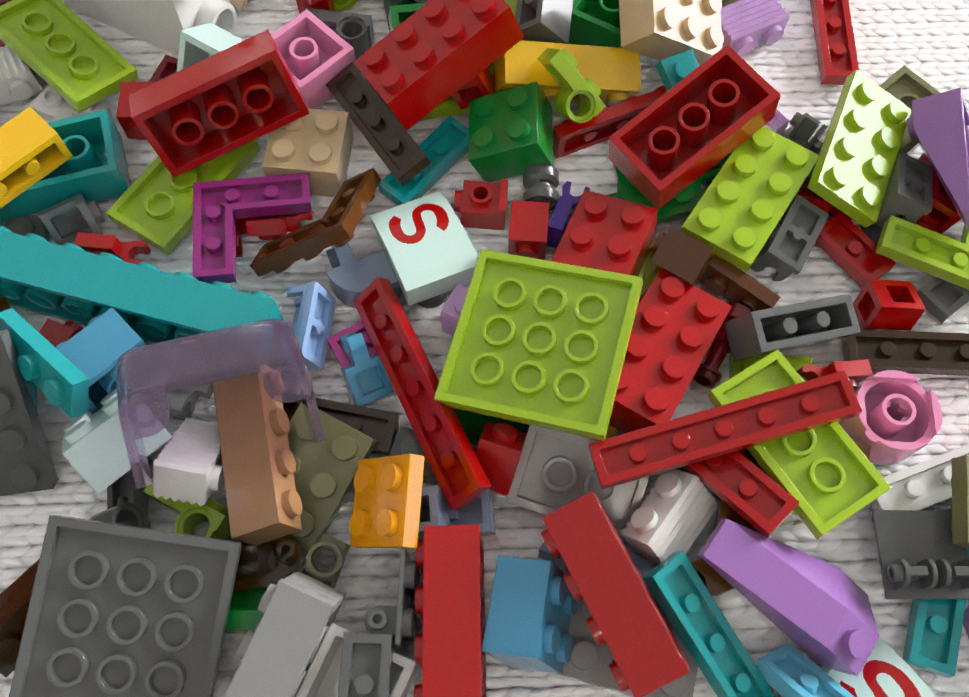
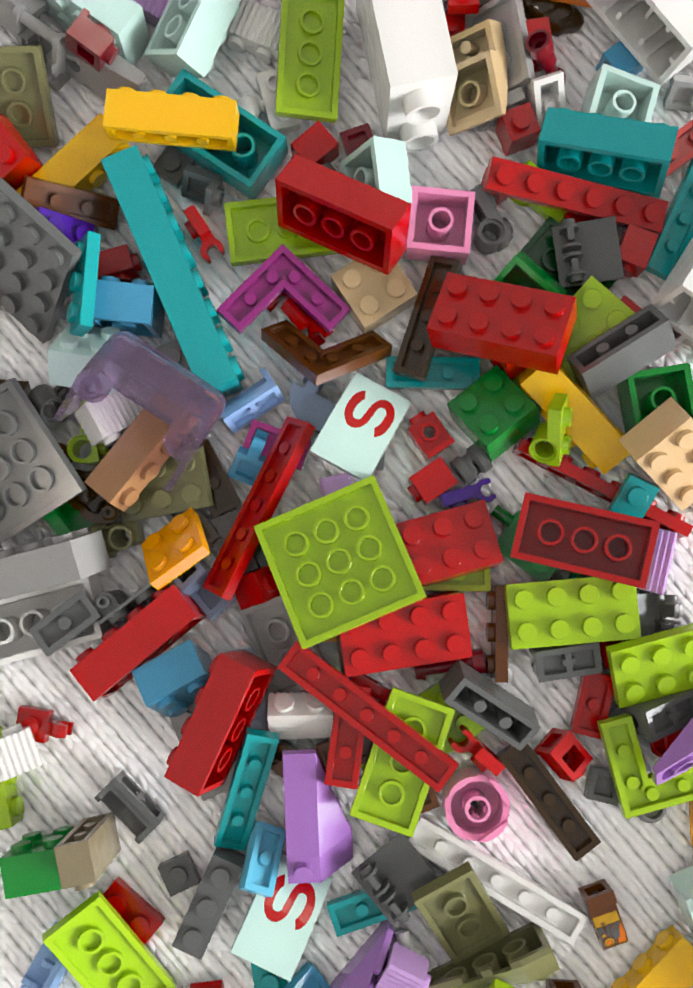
camera: 55 degrees right, 20 degrees up
(681, 255) = (483, 600): reddish brown brick -> none

